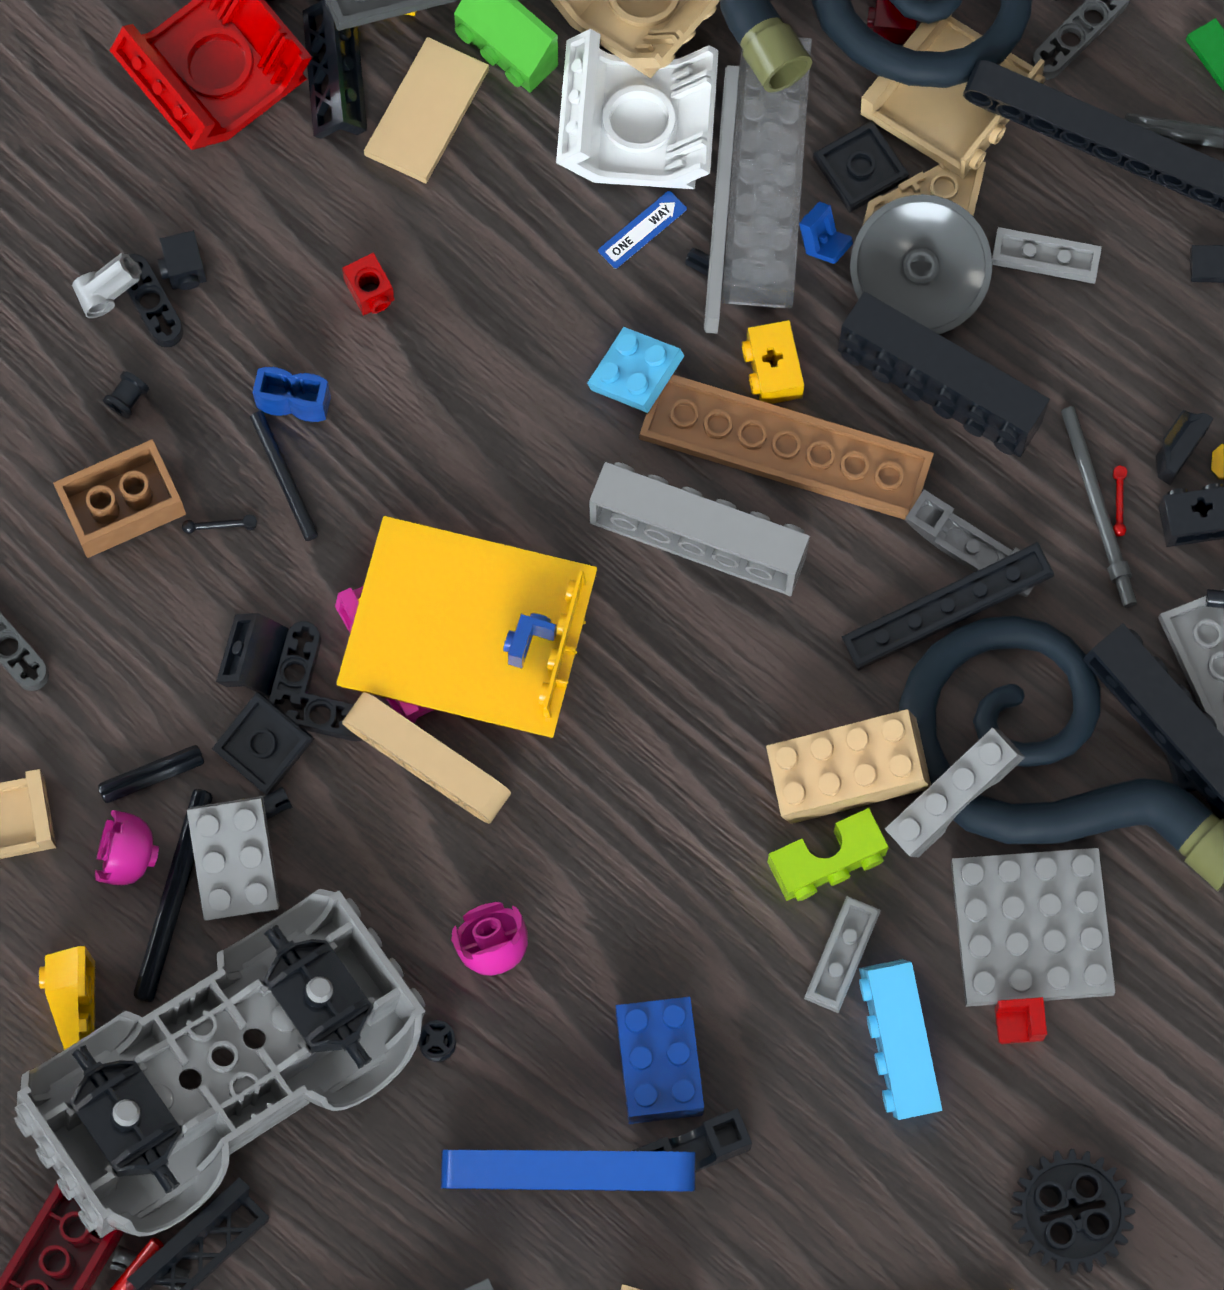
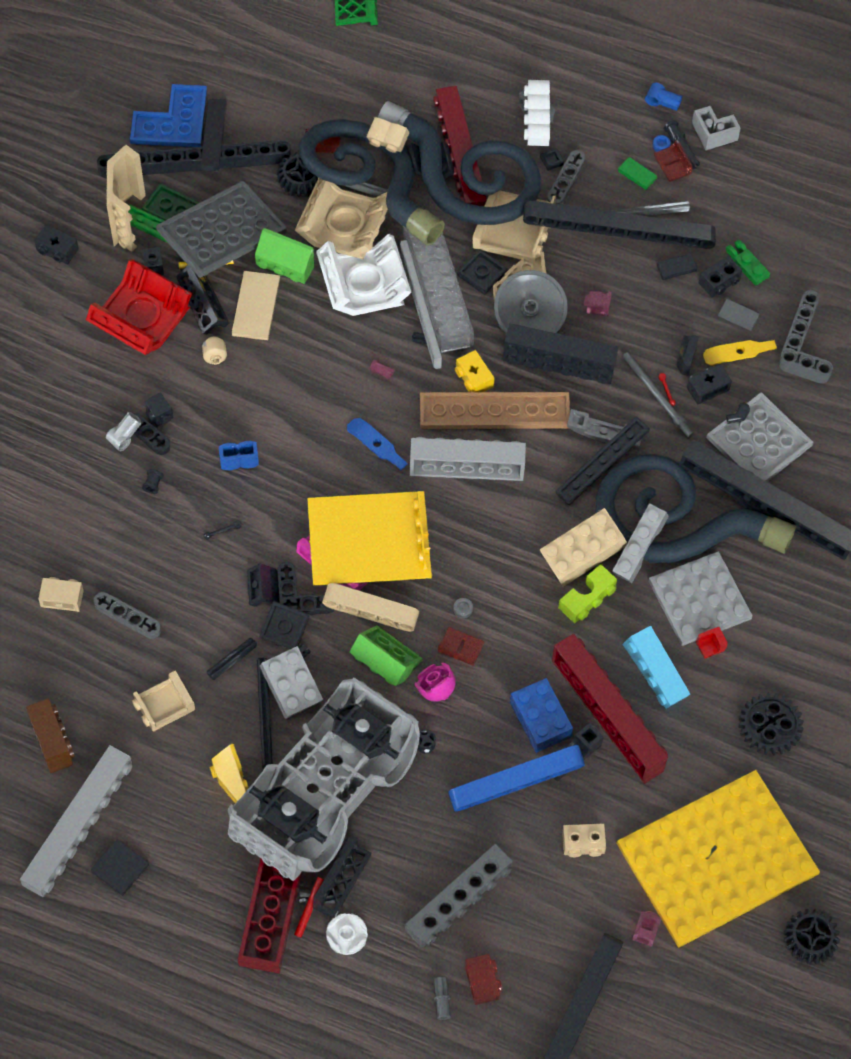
camera: 20 degrees left, 10 degrees down
(120, 498) = (168, 530): medium nougat brick -> none
(126, 849) = (232, 697): dark pink cylinder -> none
(284, 476) = (247, 497): black bar -> none
(319, 176) = (214, 350): none -> tan head
(368, 271) = (257, 387): red brick -> none
(423, 855) = (385, 655): none -> bright green slope
(519, 641) = (402, 526): blue bracket -> none
(541, 426) = (370, 436): none -> blue piece
(551, 867) = (469, 651): none -> clear red piece
(594, 808) = (463, 608): none -> flat silver tile
(608, 303) = (381, 369): none -> clear pink pin
(635, 369) = (407, 396): medium azure plate -> none
(642, 229) = (384, 331): sticker -> none
(784, 1089) = (609, 708): none -> dark red brick
(820, 235) = (475, 308): blue bracket -> none
(842, 954) = (612, 639): light grey tile -> none
(1046, 255) = (582, 286): light grey plate -> none
(1052, 292) = (598, 302): none -> clear pink brick

